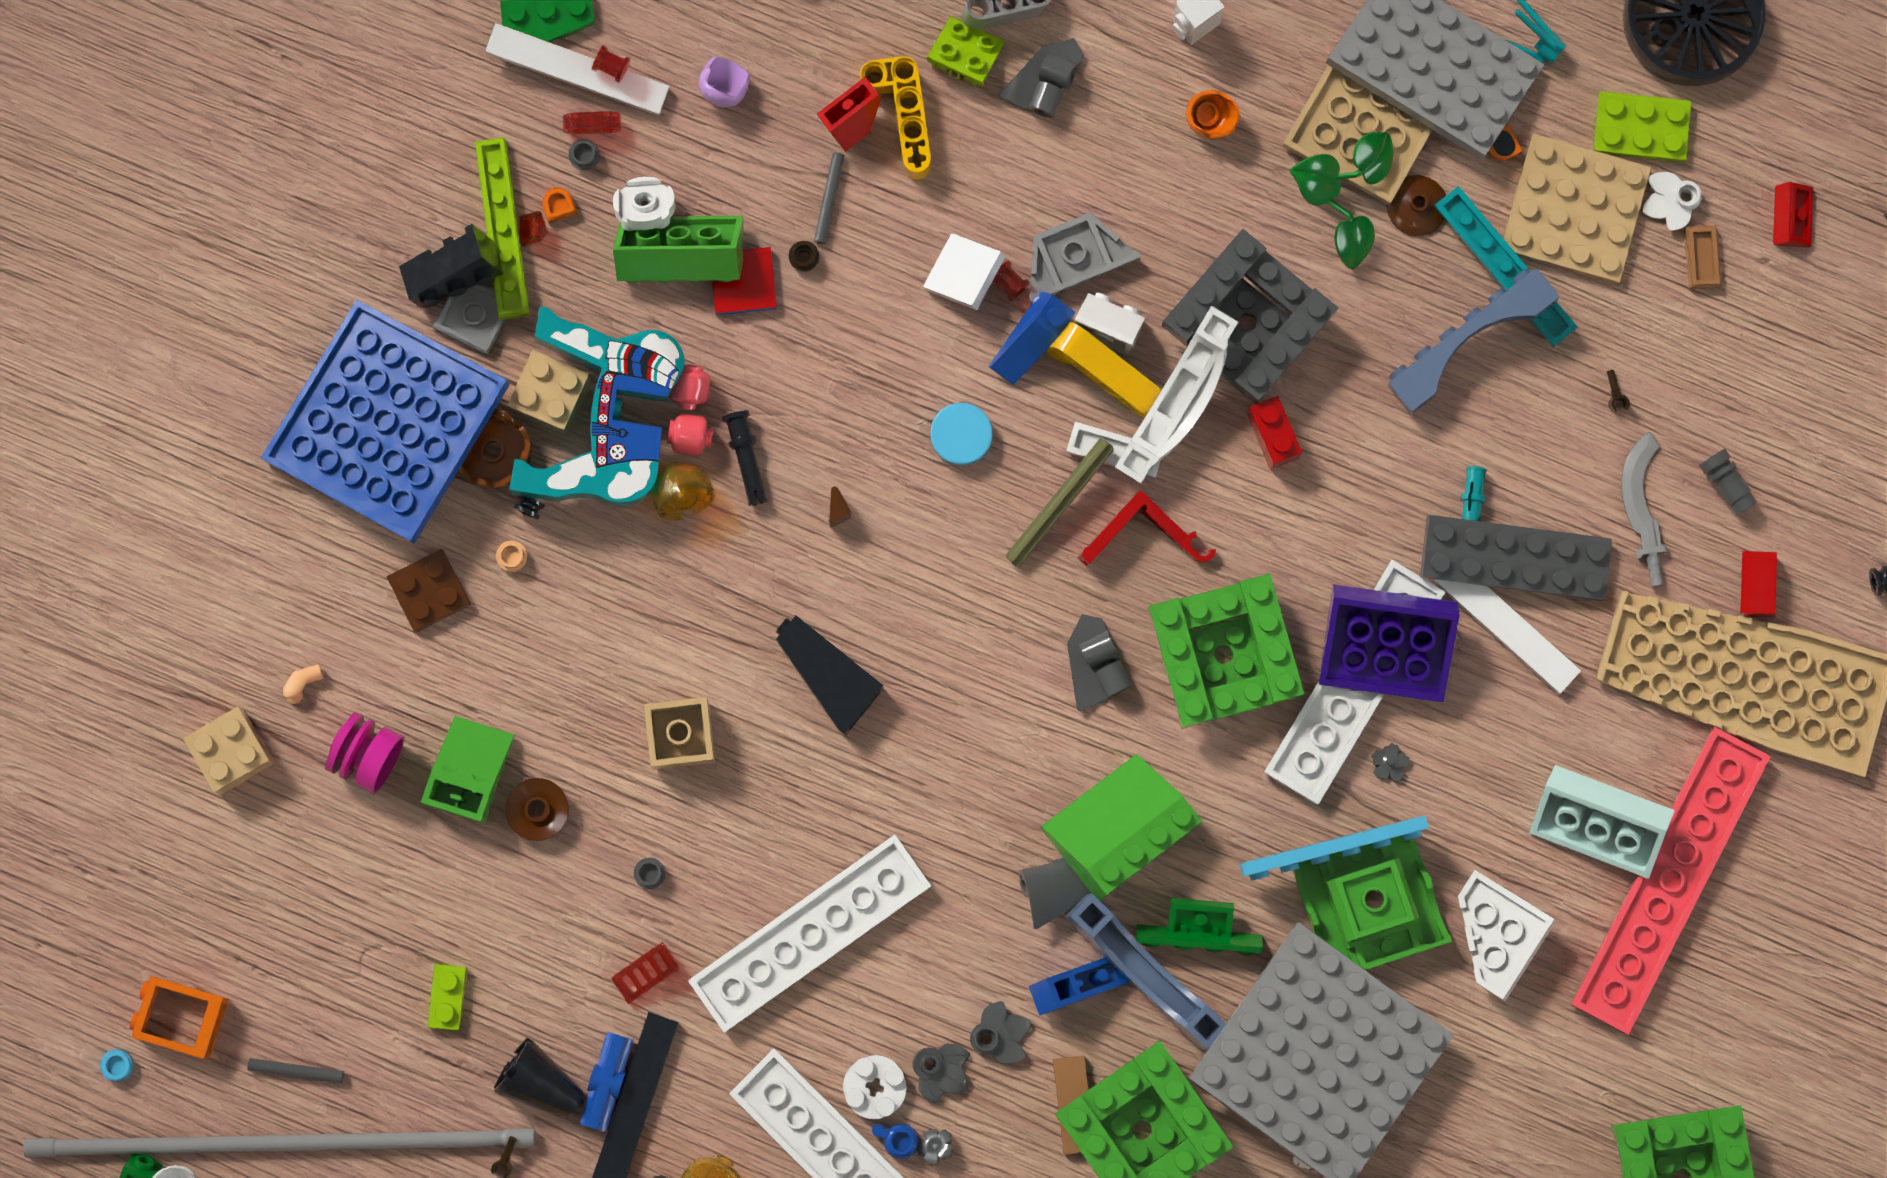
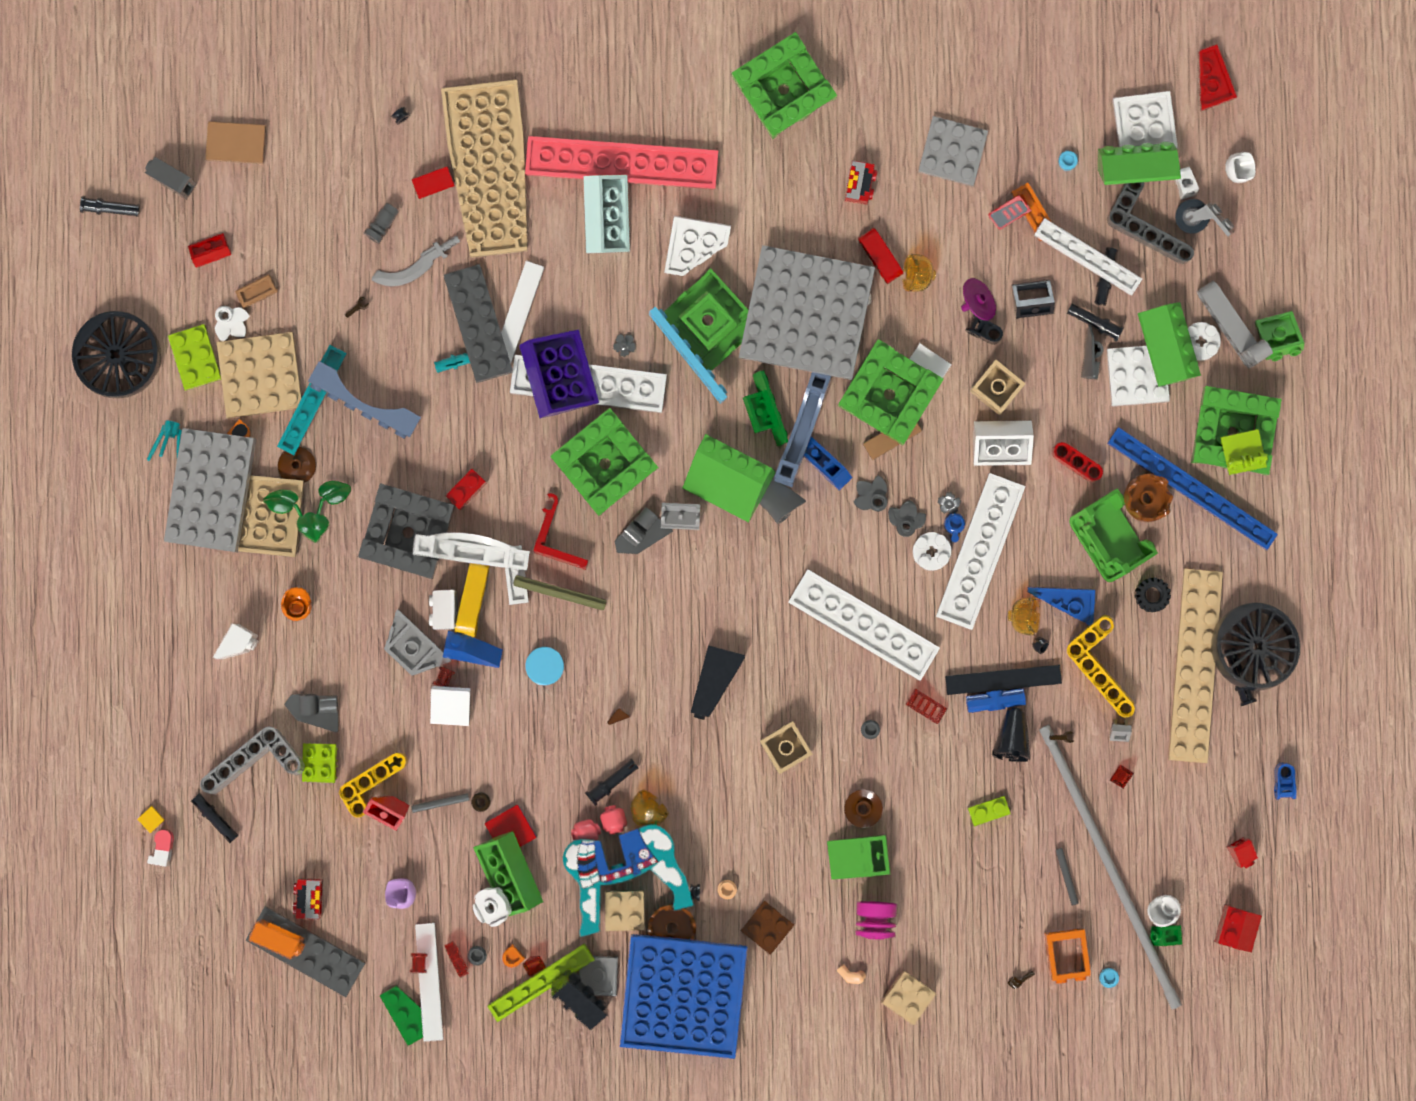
camera: 115 degrees left, 5 degrees up
(174, 921) = (1015, 983): none -> dark brown hand
(1094, 730) = (680, 516): none -> light grey hinge

